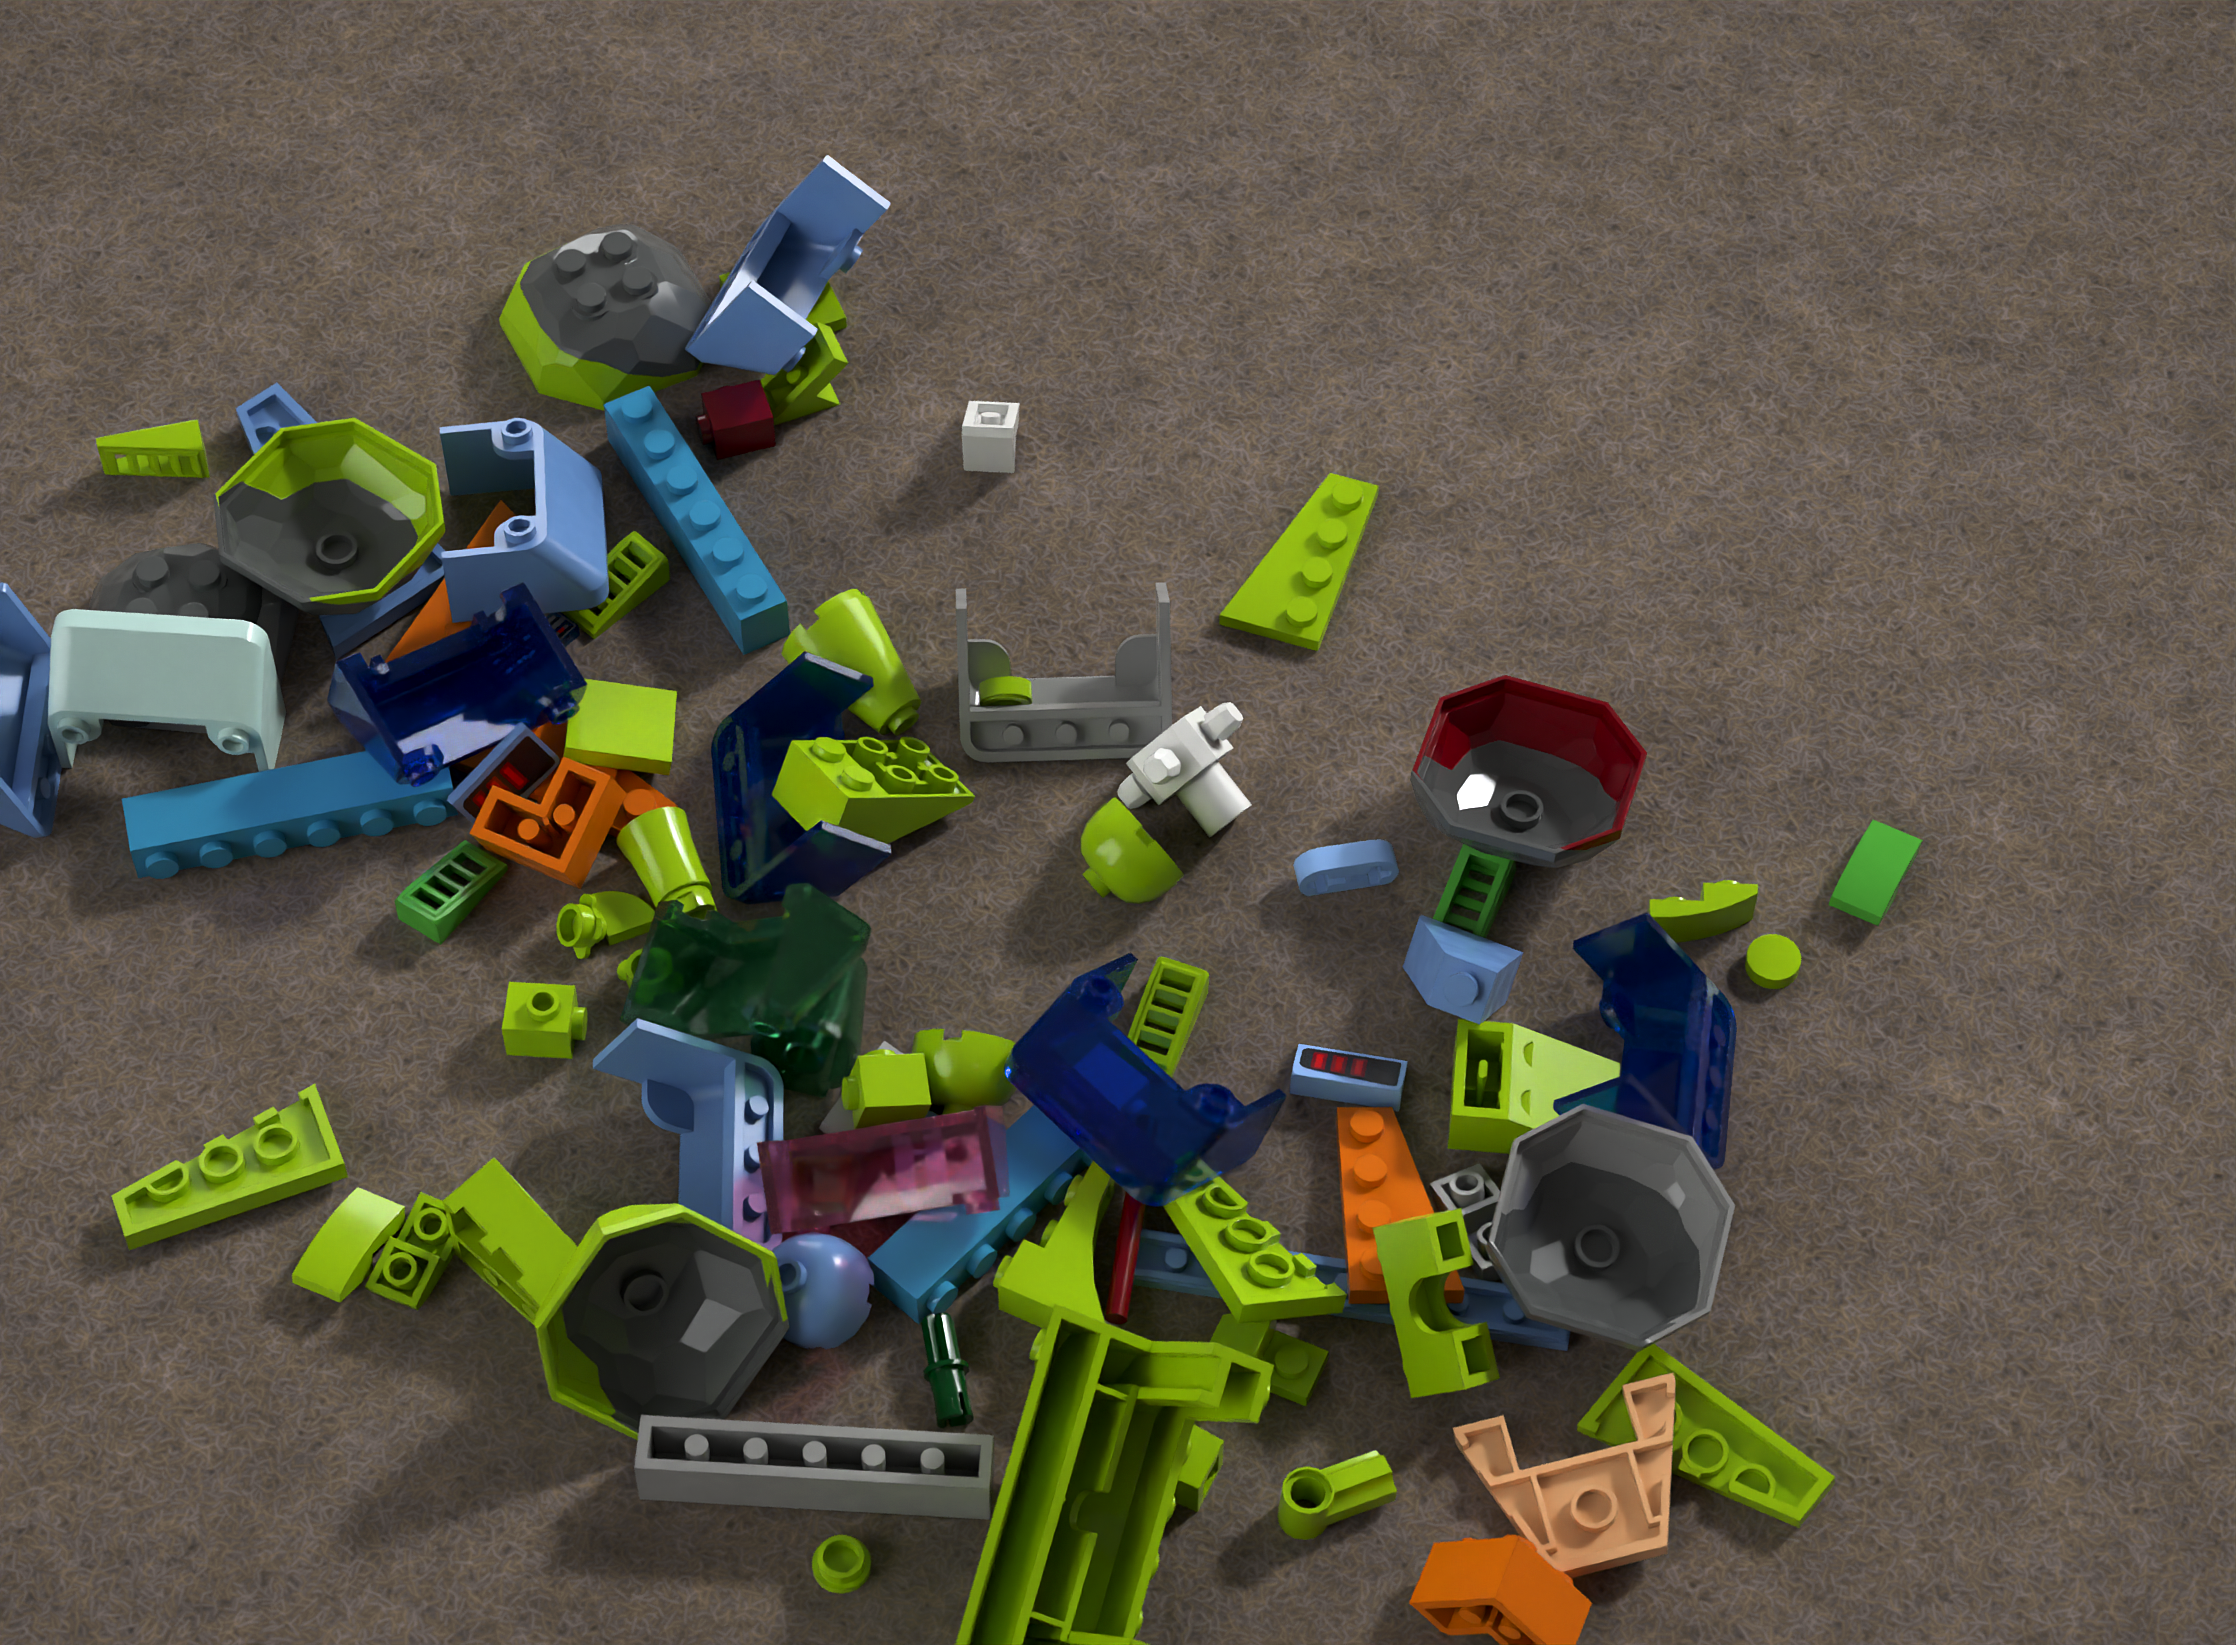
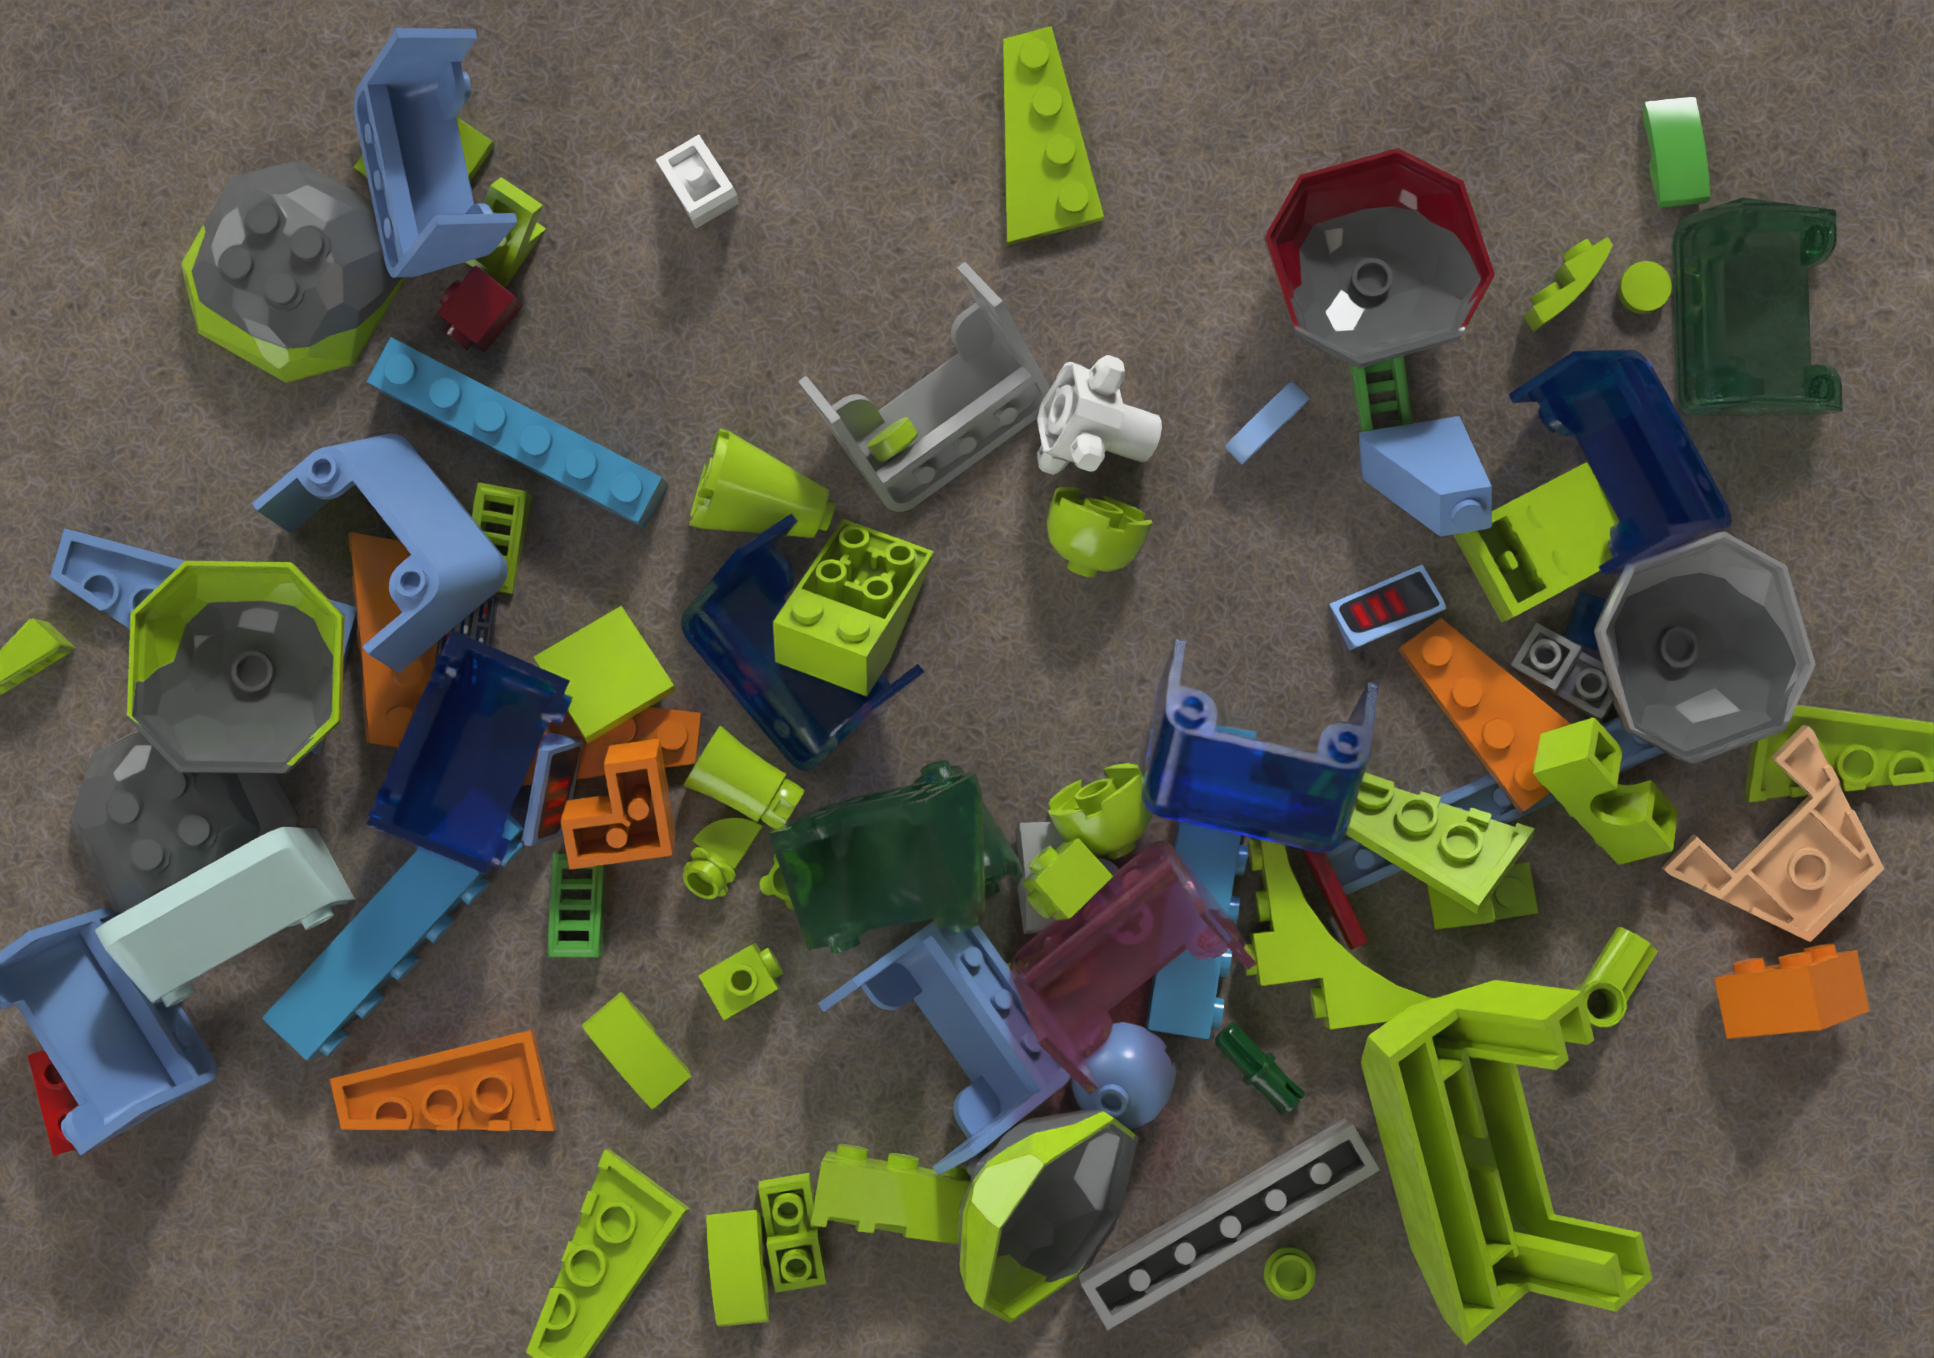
camera: 30 degrees left, 30 degrees up
(234, 964) = (472, 1087): none -> orange wing
(407, 1025) = (636, 1050): none -> lime slope
(1175, 986) = (1208, 611): lime slope -> none
(1864, 1023) = (1747, 310): none -> clear green windscreen

